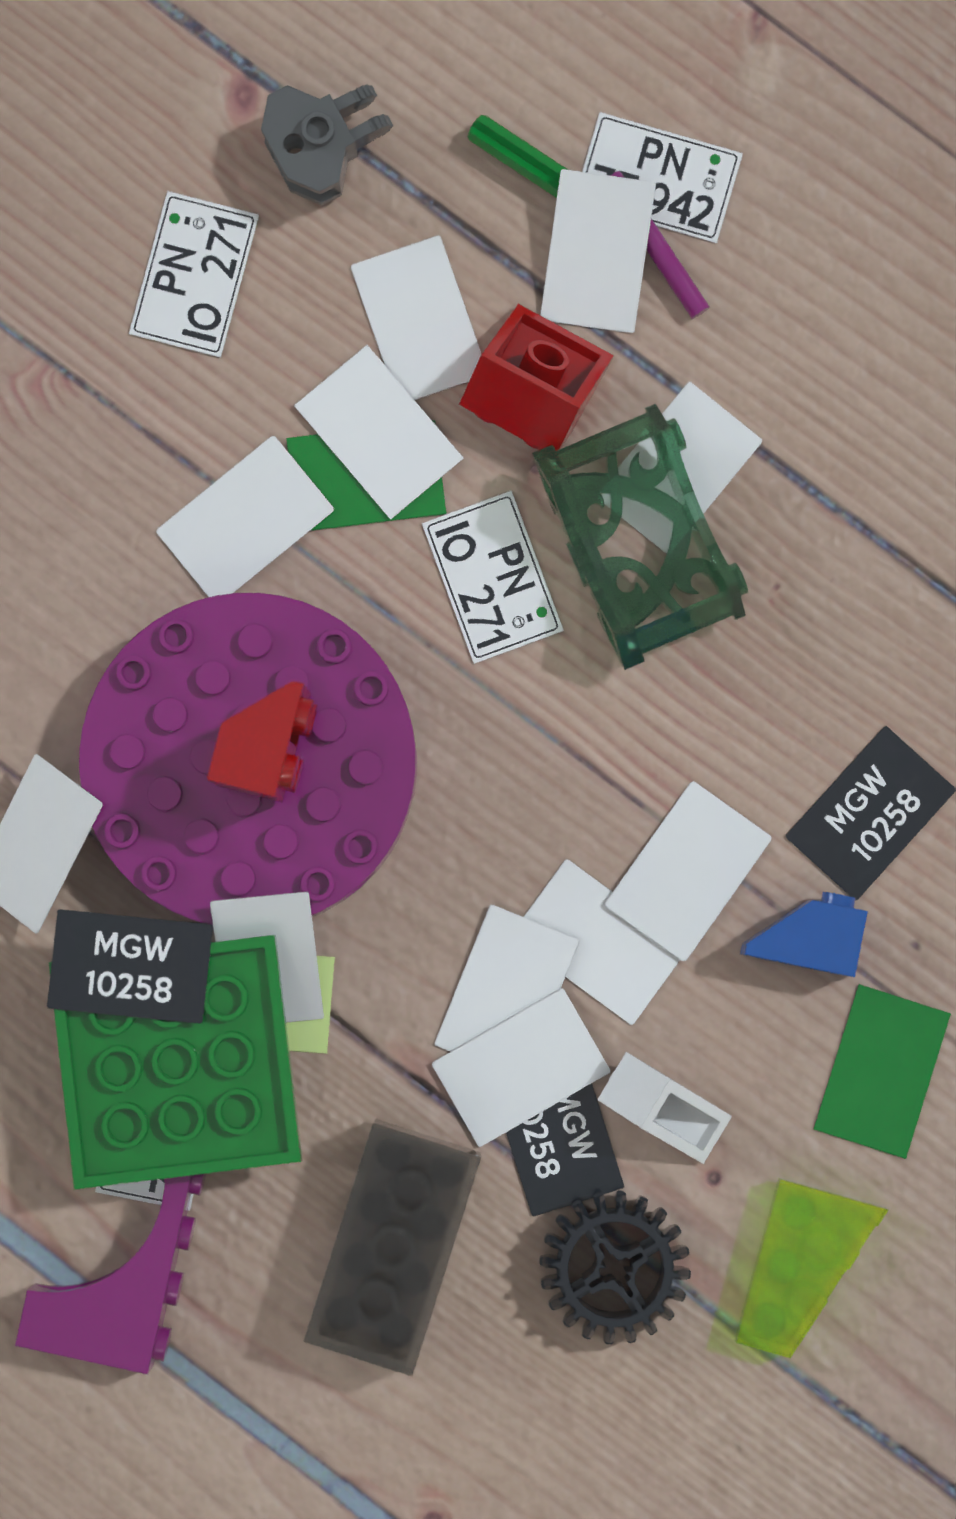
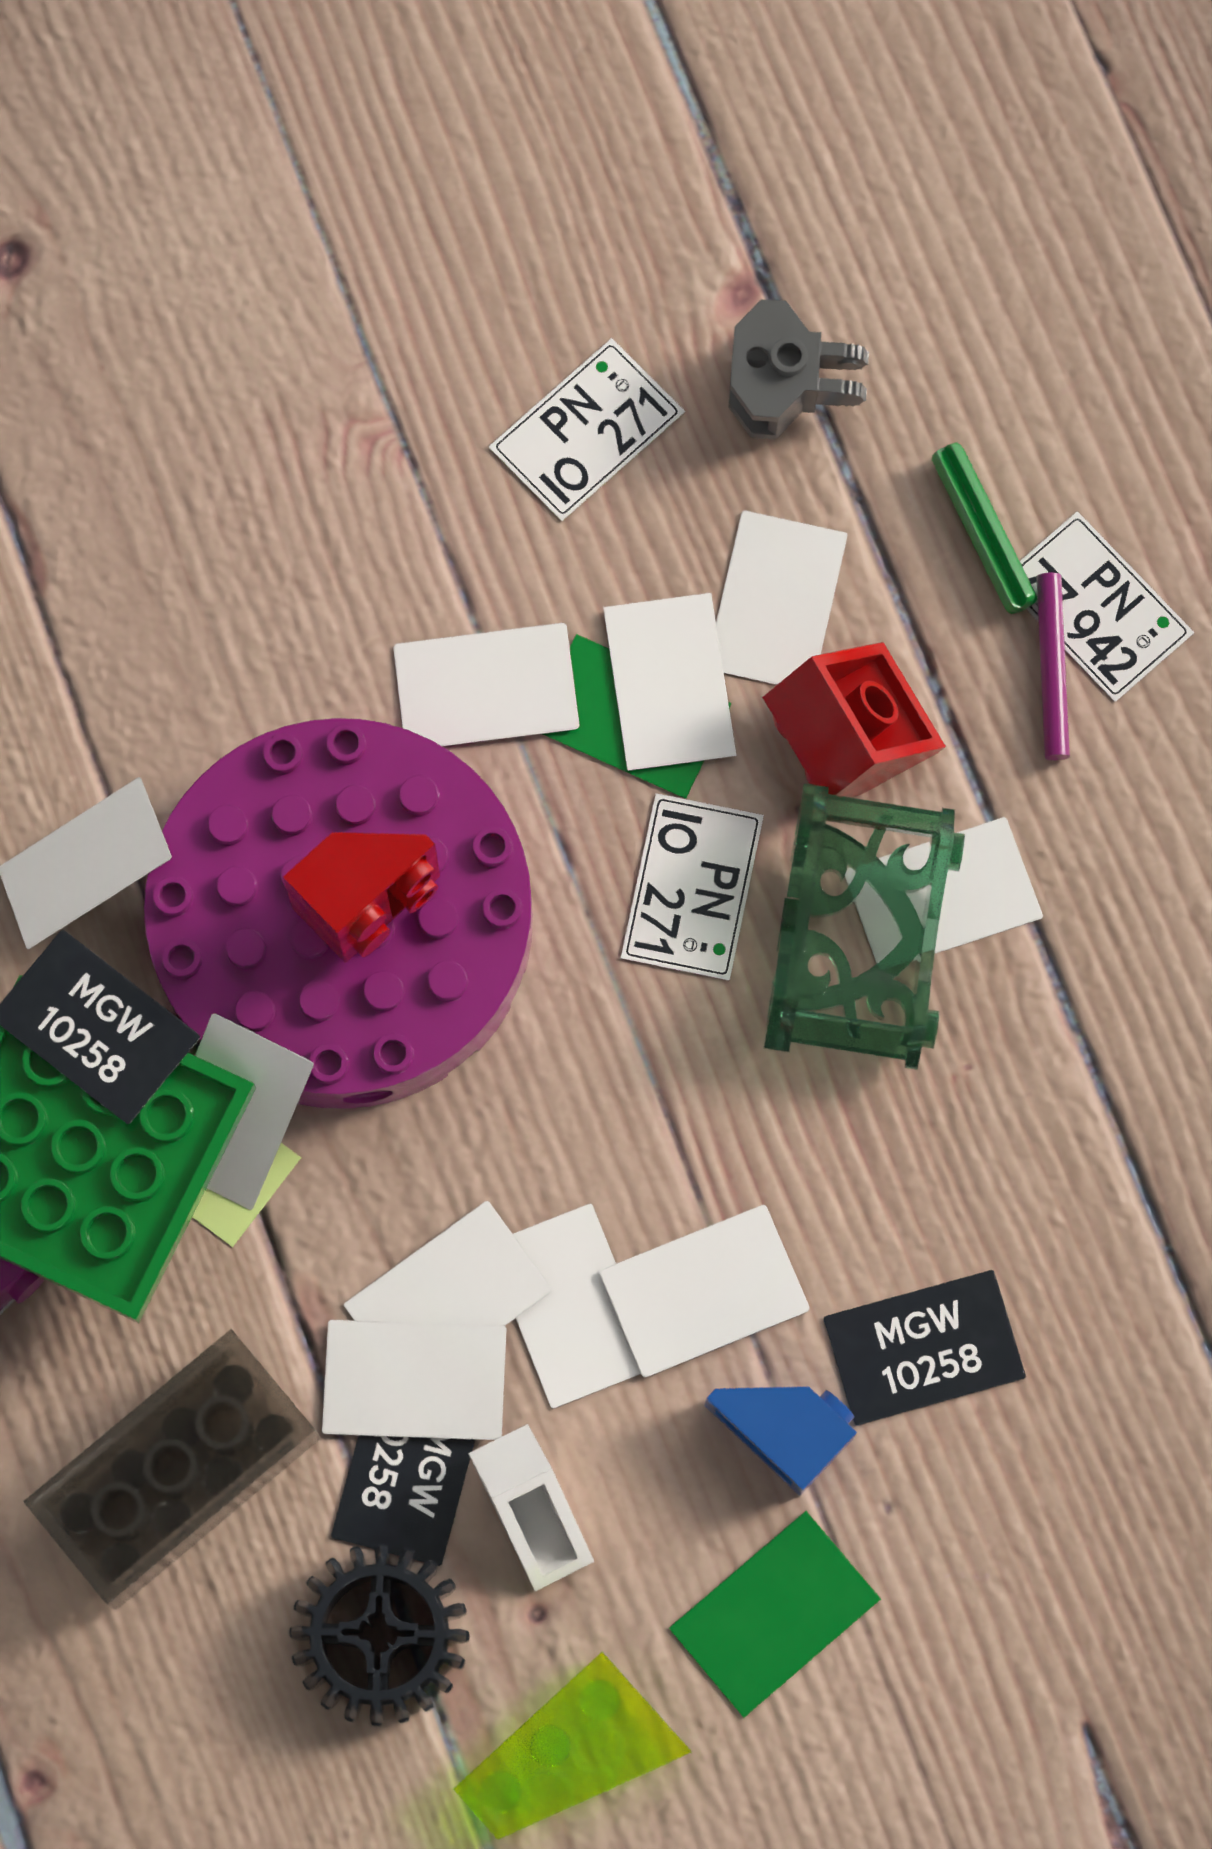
camera: 30 degrees right, 10 degrees down
(597, 250) = (991, 637): white sticker -> none

